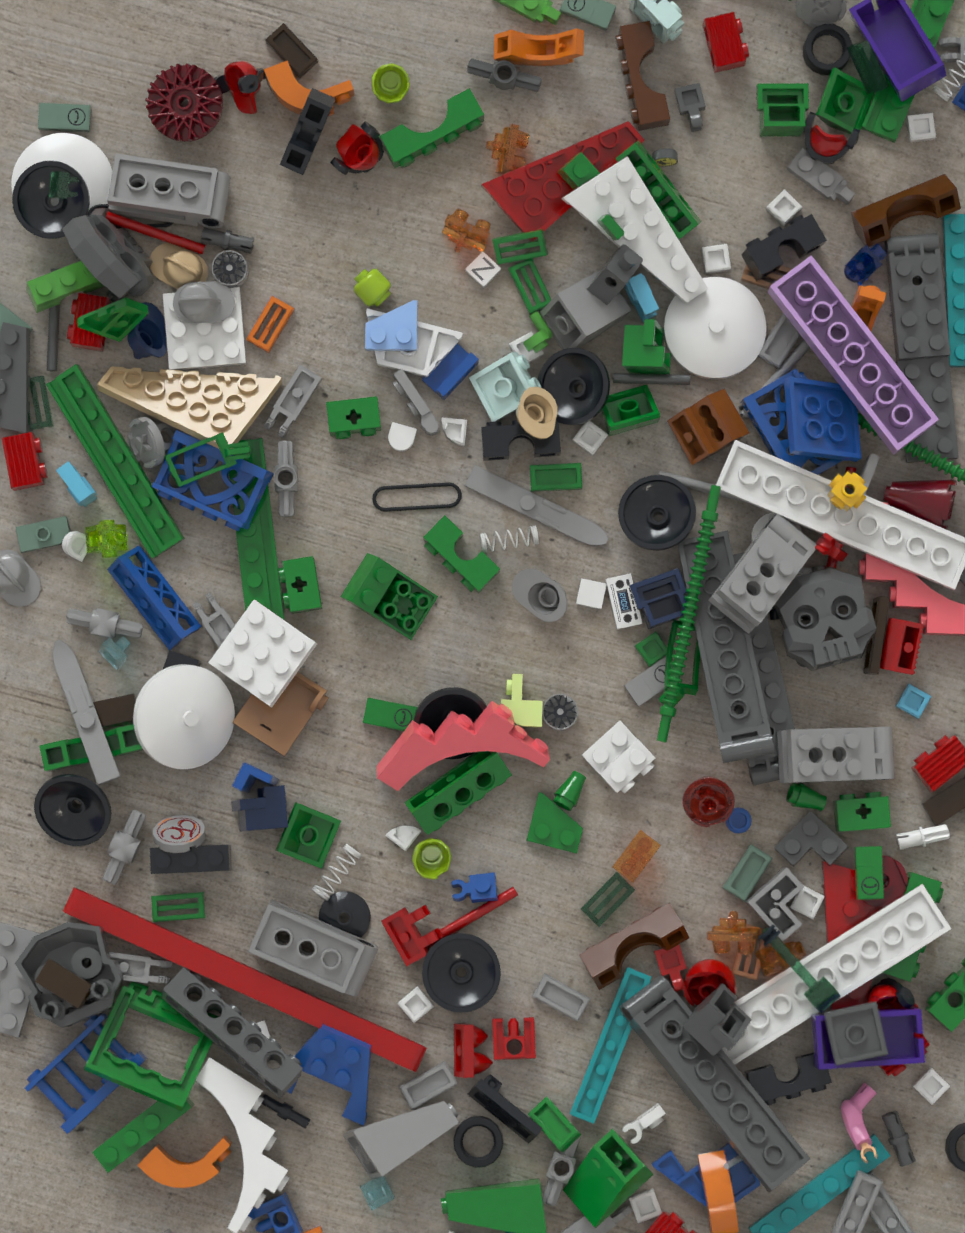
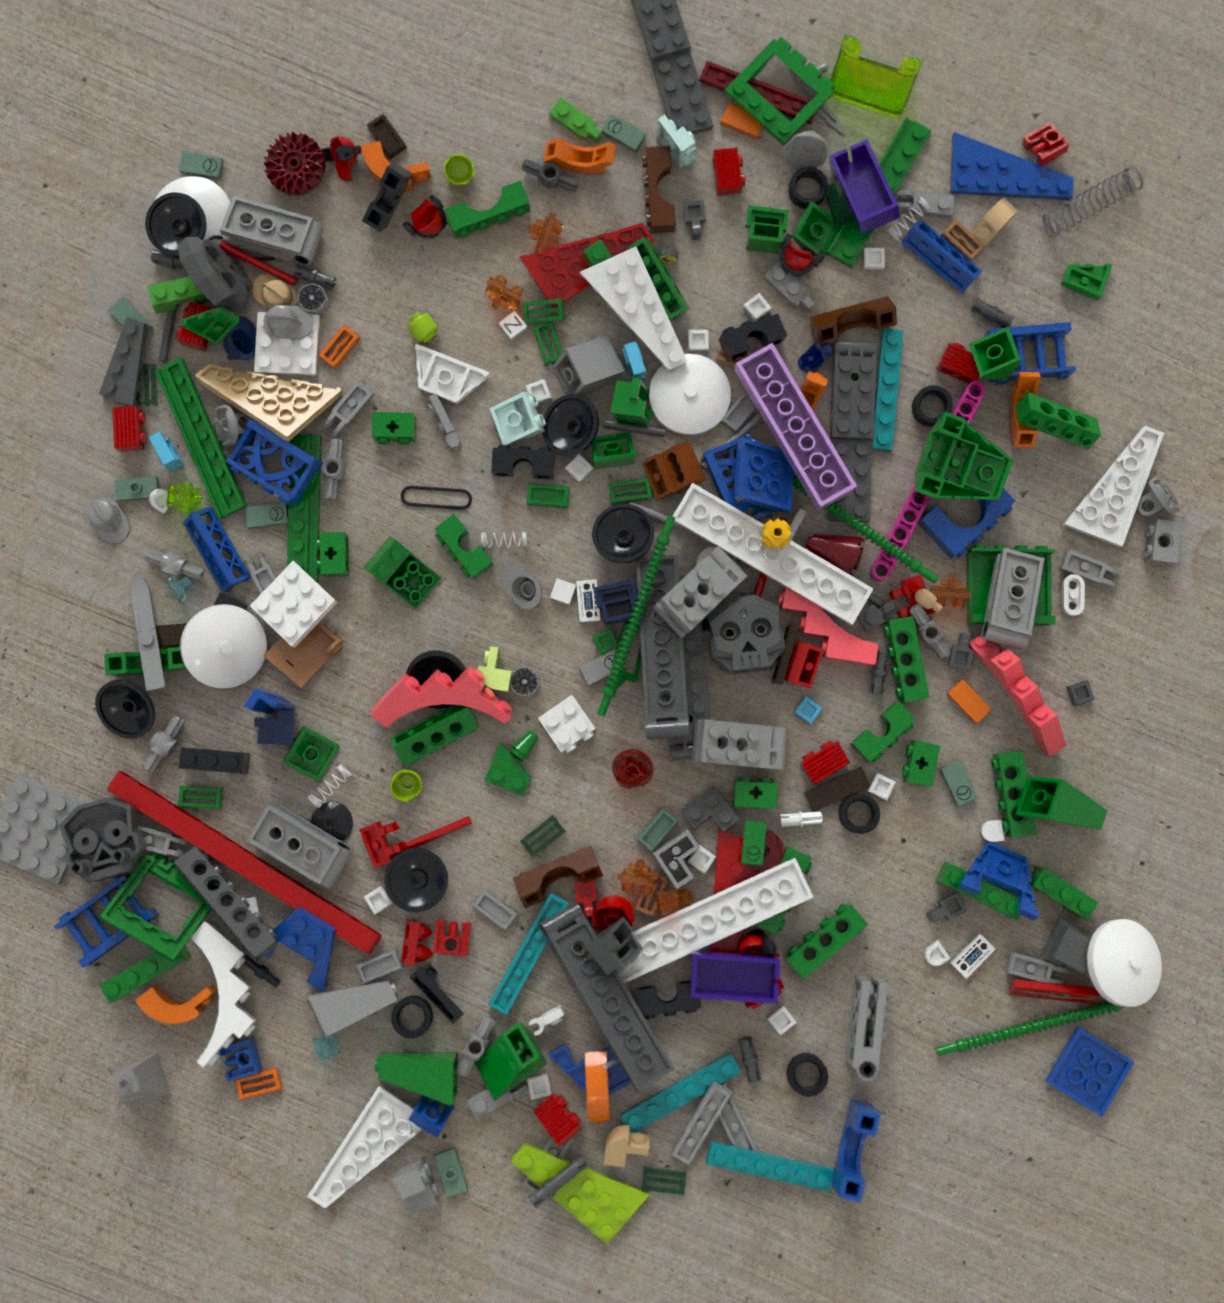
camera: 10 degrees right, 0 degrees up
(29, 240) = (162, 258): none -> dark grey pin
(59, 185) = (182, 210): clear green tile -> none
(64, 983) = (93, 847): dark brown tile -> none
(178, 833) = (207, 738): light grey tile -> none
(210, 547) = (266, 515): none -> sand green tile
(224, 449) = (293, 437): green sword -> none
(388, 714) = (387, 665): green tile -> none
(393, 330) = (434, 362): light blue wing -> none
(401, 437) = (430, 448): white tile -> none
(403, 836) = (387, 764): white tile -> none
(451, 371) = (477, 402): blue panel -> none
(455, 430) = (473, 448): white tile -> none
(480, 888) = (441, 814): blue plate -> none
(535, 507) = (528, 517): light grey piece -> none
(537, 412) = (537, 440): tan piece -> none
(538, 341) = (548, 384): bright green plate -> none
(554, 1124) = (474, 1011): green tile -> none
(611, 227) = (615, 299): green tile -> none
(619, 266) = (619, 333): dark grey torso -> none
(636, 856) = (569, 804): clear orange hips -> none
(678, 452) = (648, 496): none -> green tile
(739, 821) = (656, 787): blue plate -> none
(805, 797) = (709, 774): green cone -> none
(820, 992) = (701, 934): clear green piece -> none
(830, 546) = (757, 577): red plate -> none
(853, 1119) = (715, 1040): bright pink arm -> none
(855, 1033) = (724, 972): dark grey plate -> none

